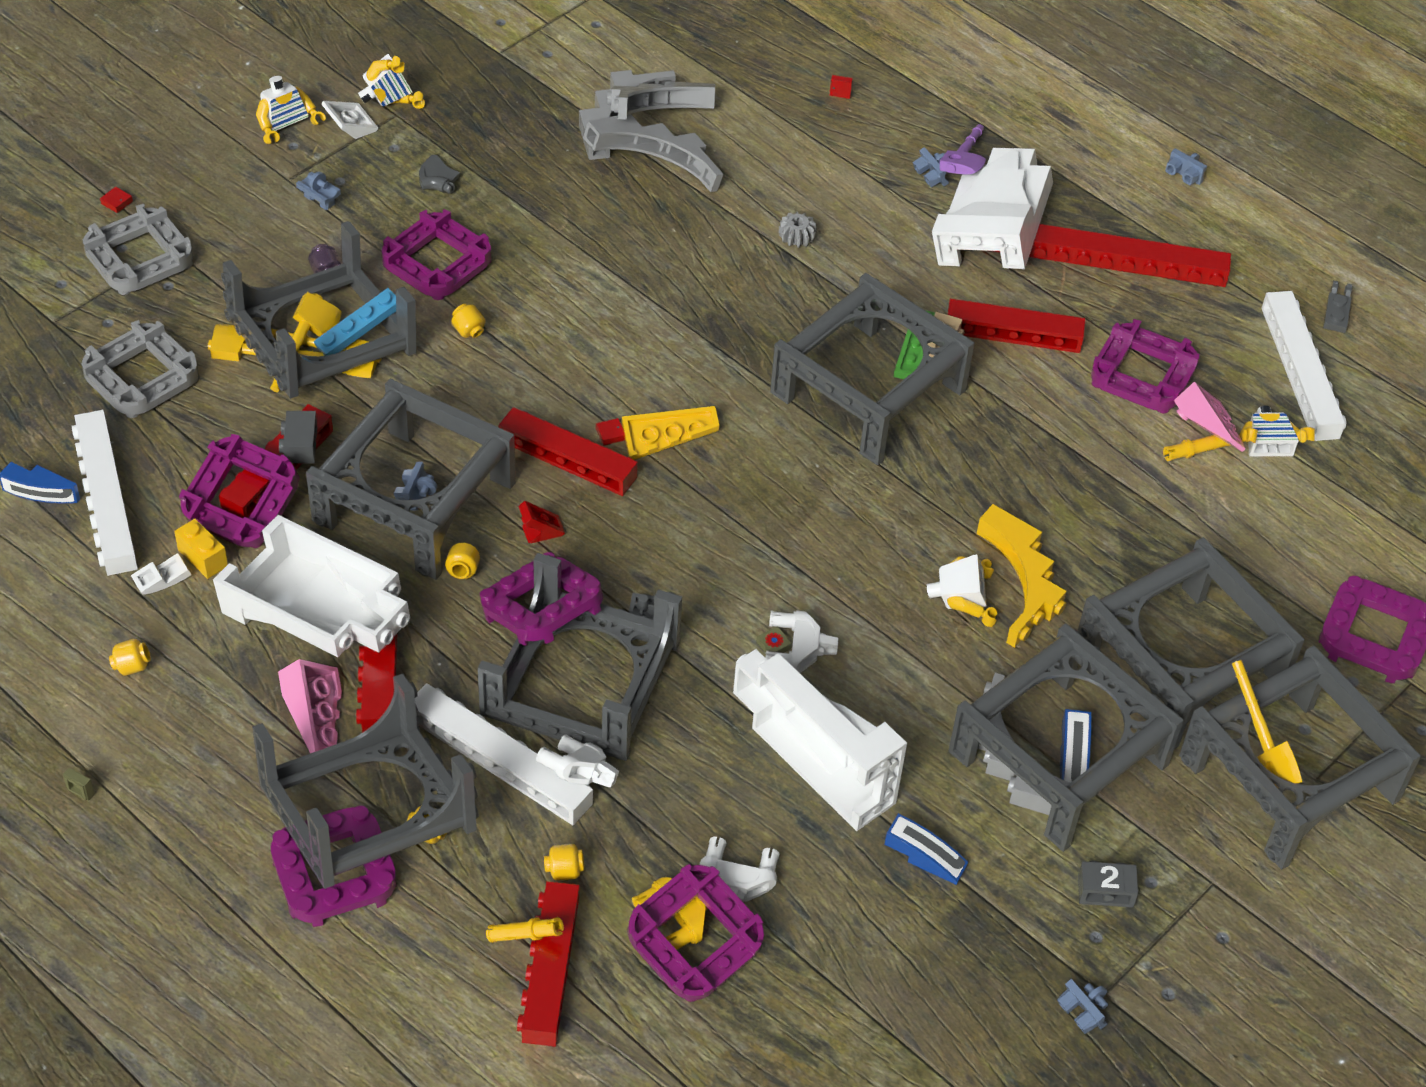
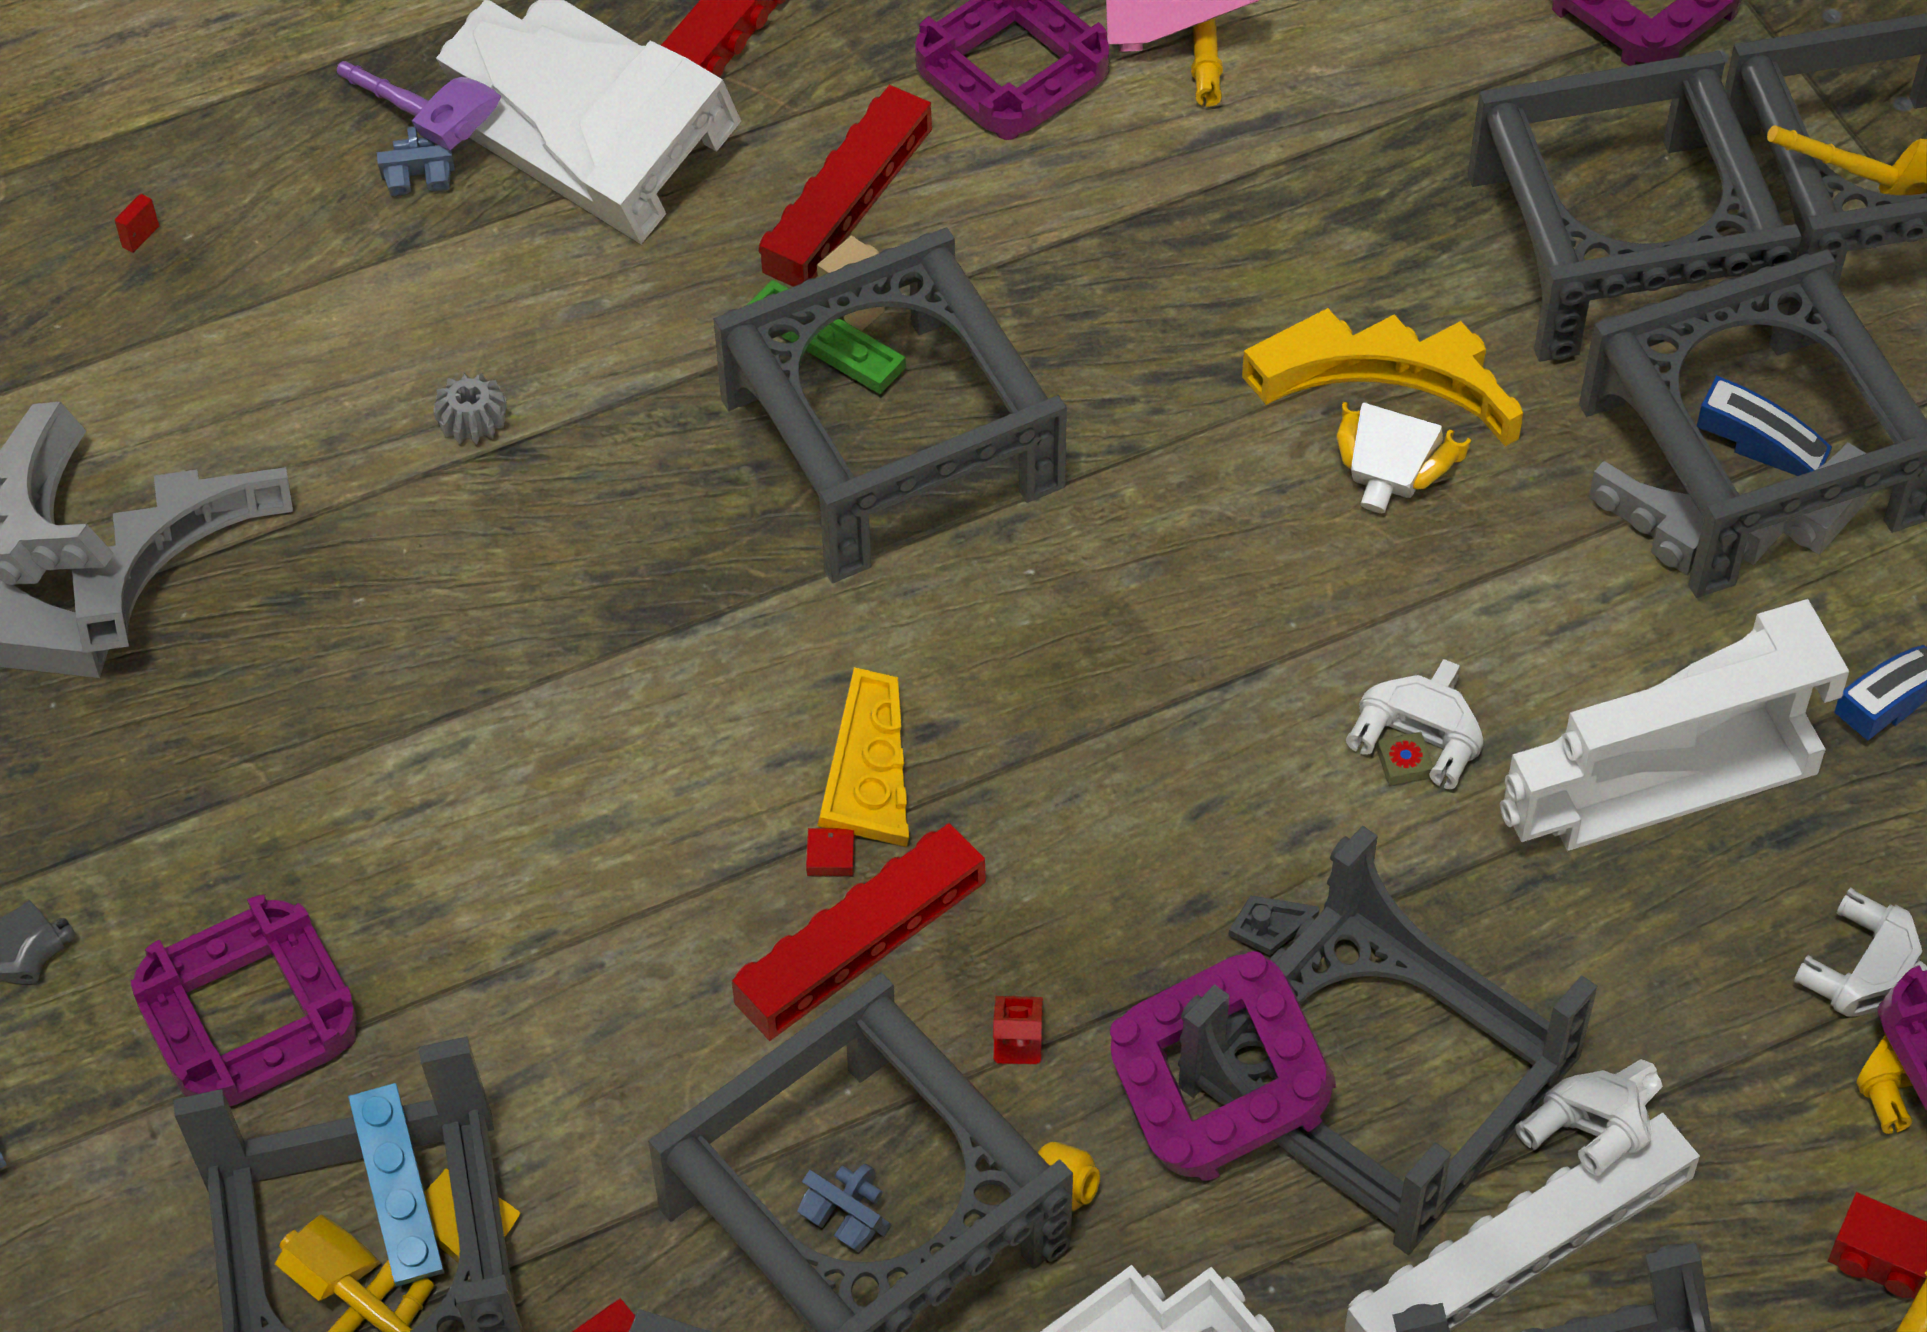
camera: 65 degrees left, 5 degrees up
(323, 258) = (168, 1207): clear purple head -> none
(468, 321) = (456, 998): yellow head -> none
(564, 862) = (1788, 1205): yellow head -> none

